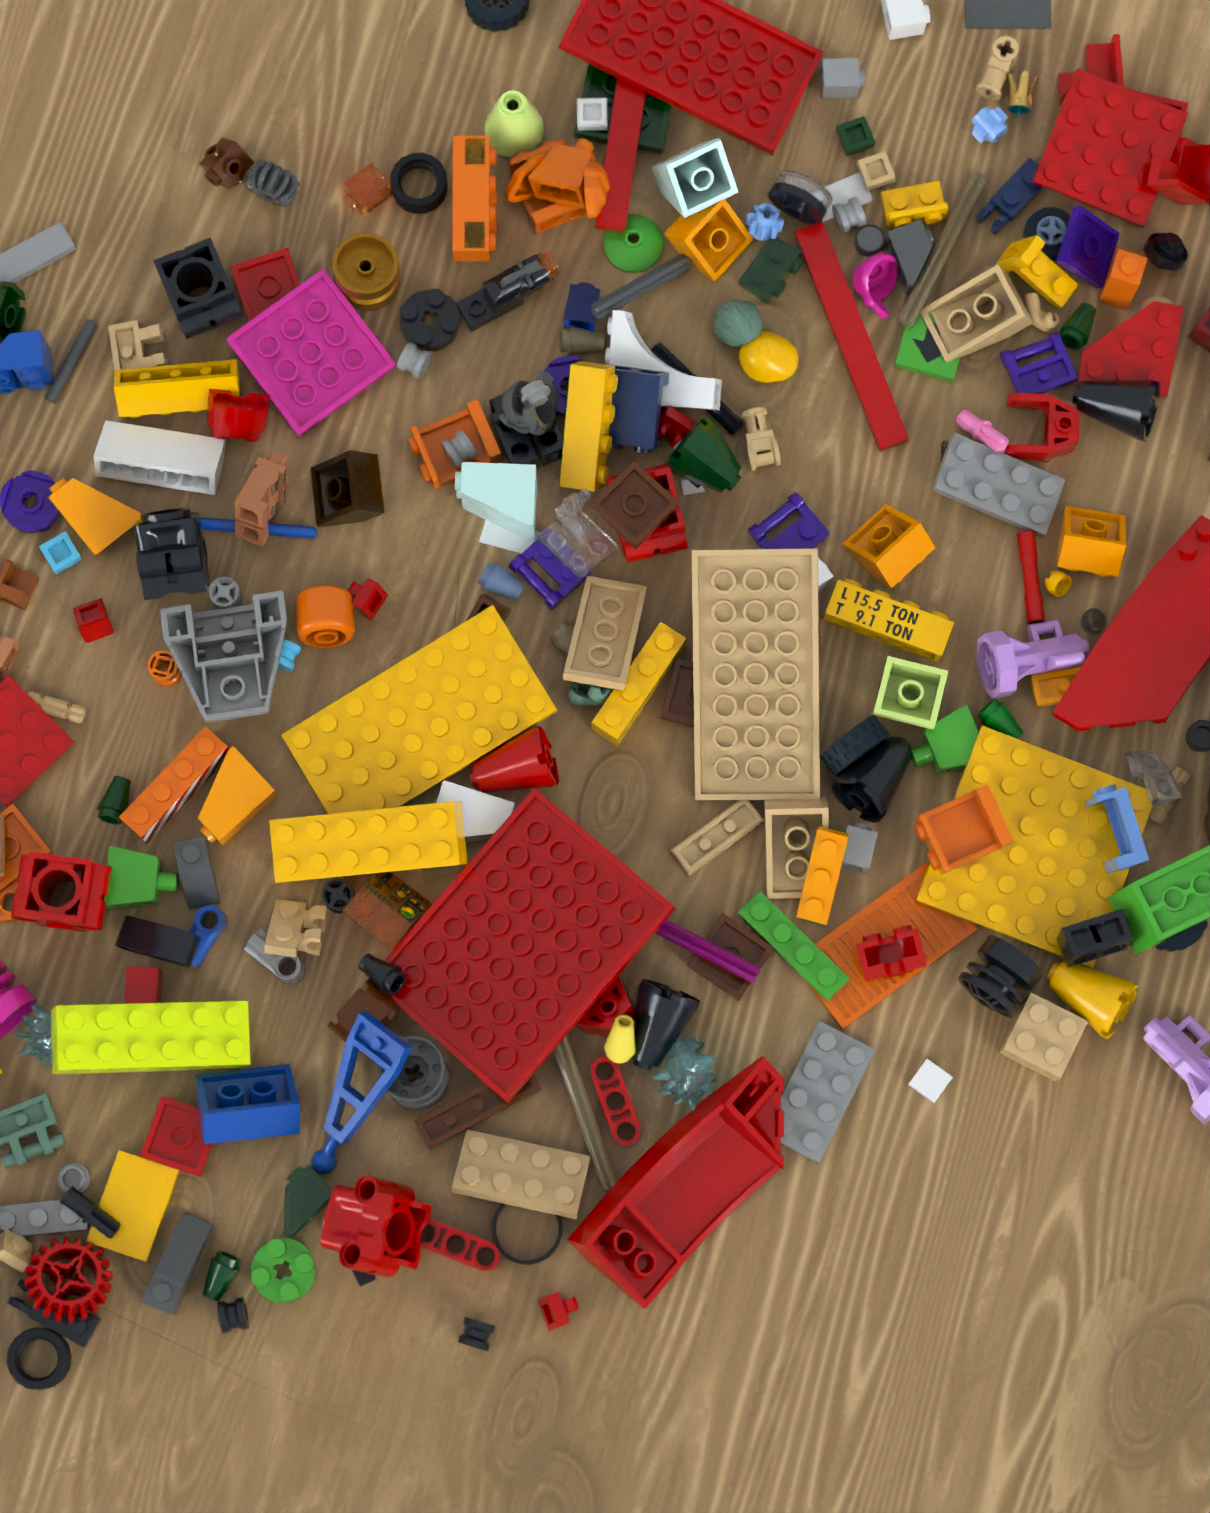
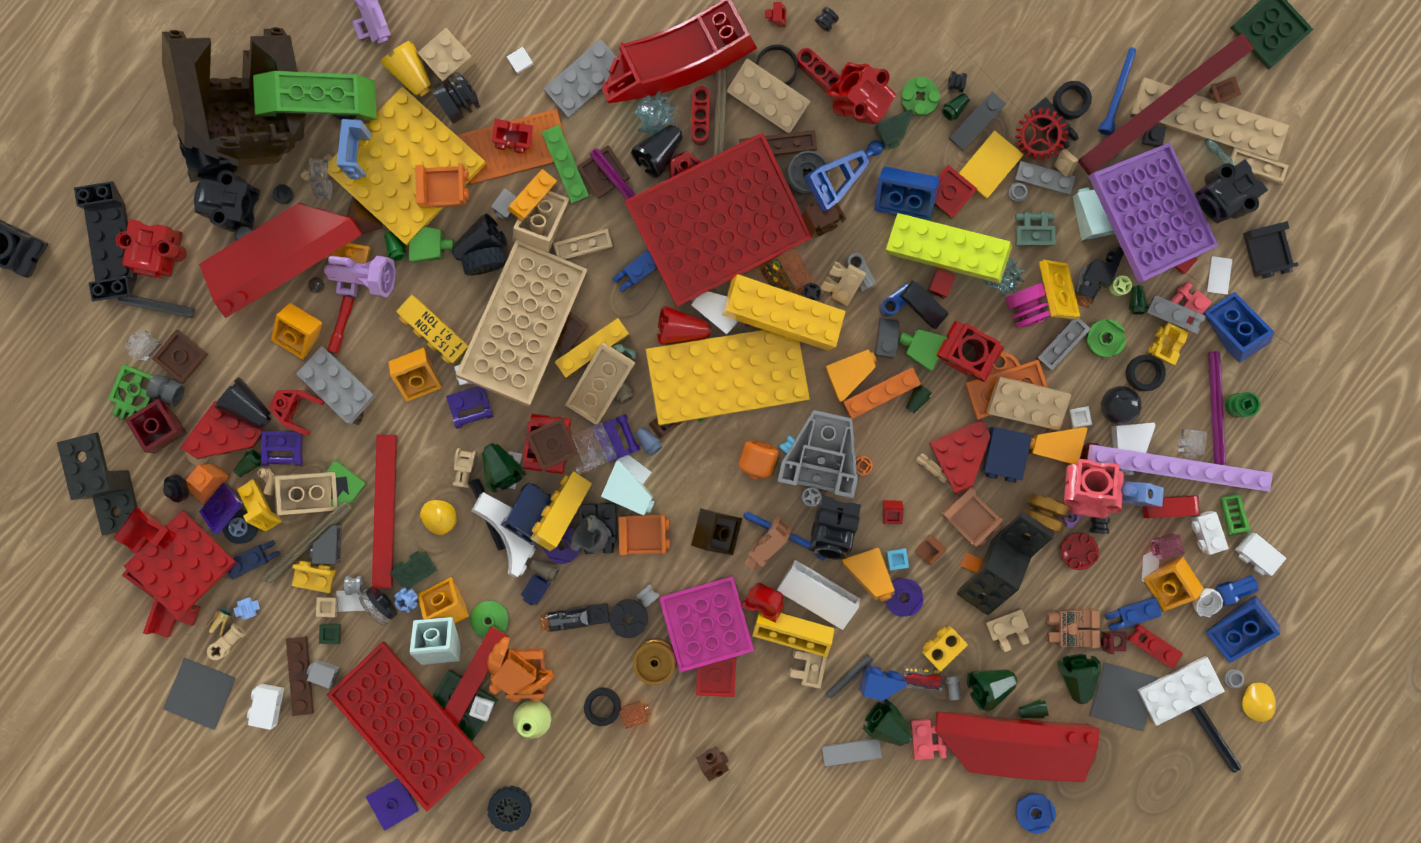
camera: 160 degrees left, 10 degrees up
(90, 1212) = (1016, 167): black axle -> none
(195, 268) = (759, 704): black piece -> none
(272, 183) = (689, 739): dark grey gear -> none
(367, 598) = (729, 461): red tile -> none
(384, 975) = (804, 233): black cone -> none
(459, 449) = (642, 529): light grey wheel -> none
(473, 199) = (574, 681): orange piece -> none
(535, 393) = (584, 537): light grey plate -> none
(621, 827) = (636, 270): none -> blue hinge
(621, 1040) = (684, 143): light yellow cone -> none
(640, 286) = (496, 587): dark grey axle -> none
(674, 425) = (509, 493): red tile -> none
(737, 322) = (447, 543): sand green hair -> none
(869, 240) = (349, 565): flat silver tile -> none
(876, 280) = (356, 538): dark pink hat -> none
(879, 70) = (297, 666): none -> reddish brown plate
(910, 692) = (439, 278): yellowish green slope -> none
(982, 431) = (331, 420): bright pink axle -> none
(1058, 583) = (326, 314): yellow hinge -> none
(1067, 742) = (363, 218): none -> reddish brown slope
(1094, 938) = (393, 95): black brick -> none

